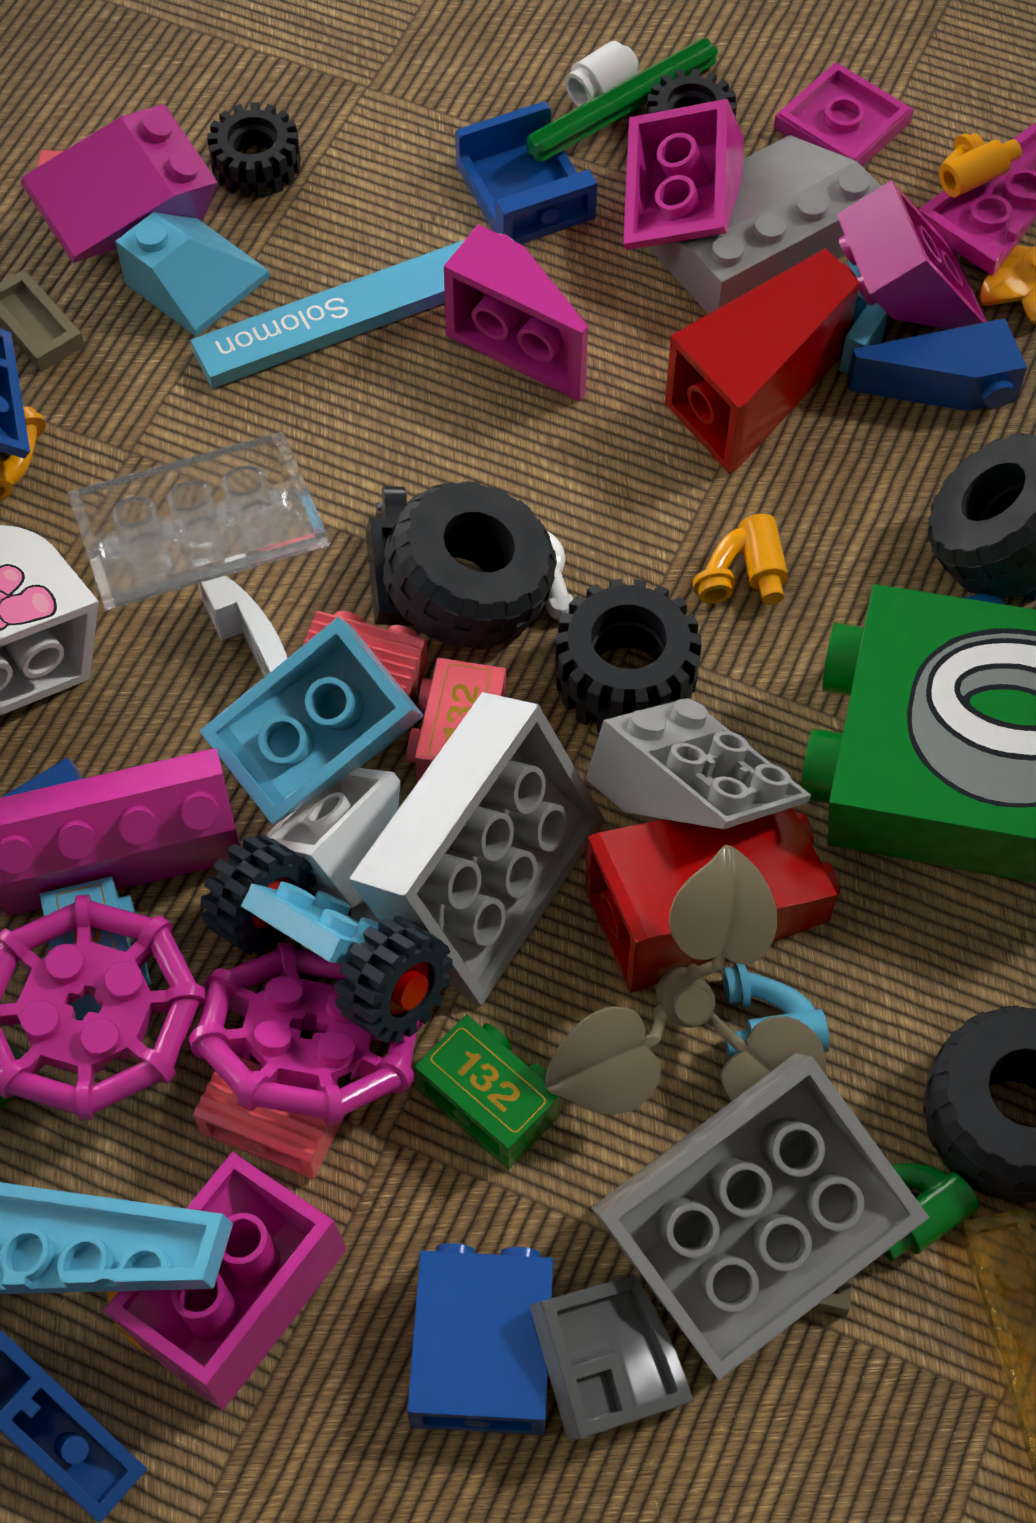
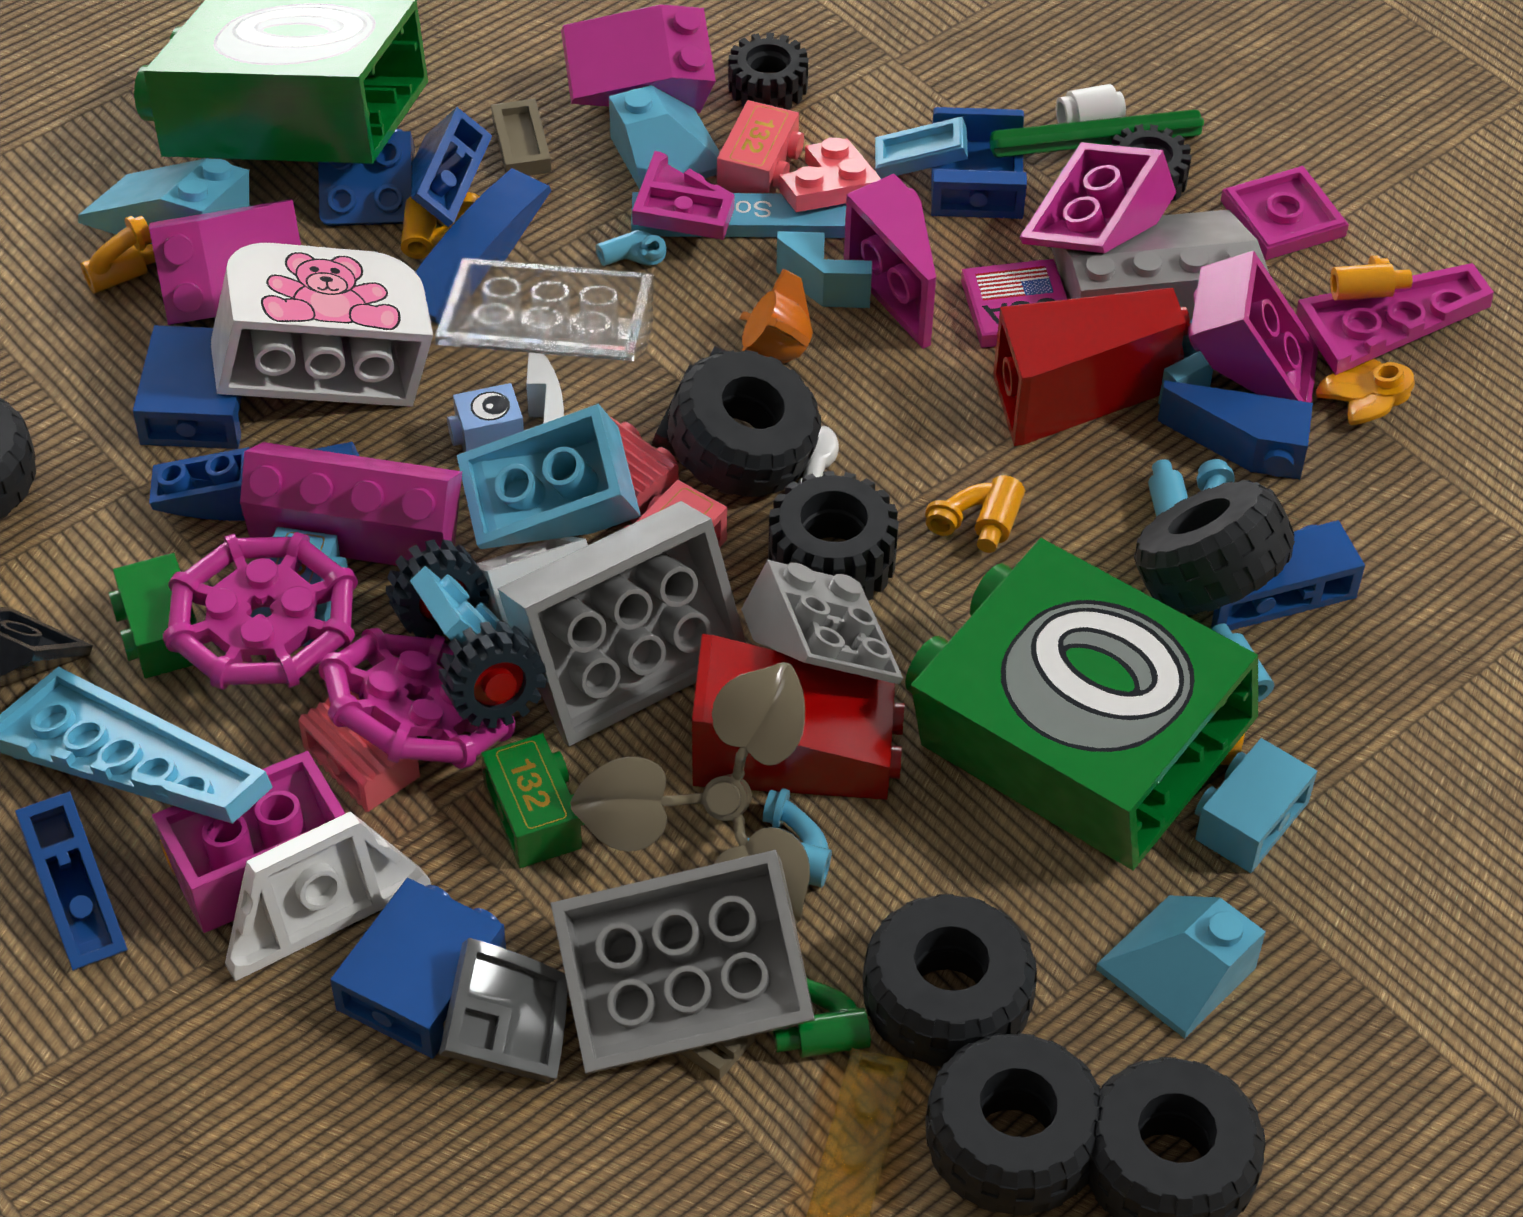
camera: 25 degrees right, 10 degrees down
(61, 452) = (483, 232): none -> blue slope
(191, 670) = (484, 416): none -> light blue brick
(223, 401) = (633, 246): none -> medium azure arm
(256, 332) = (682, 201): none -> dark pink wing
(297, 243) = (759, 149): none -> coral brick
(326, 1311) = (313, 890): none -> white wing
(392, 246) = (831, 174): none -> coral plate
(417, 354) = (824, 280): none -> medium azure slope
(430, 437) = (779, 321): none -> orange piece
(460, 179) = (921, 147): none -> medium azure tile
(641, 312) = (1007, 285): none -> tile
(913, 466) = (1168, 484): none -> medium azure plant

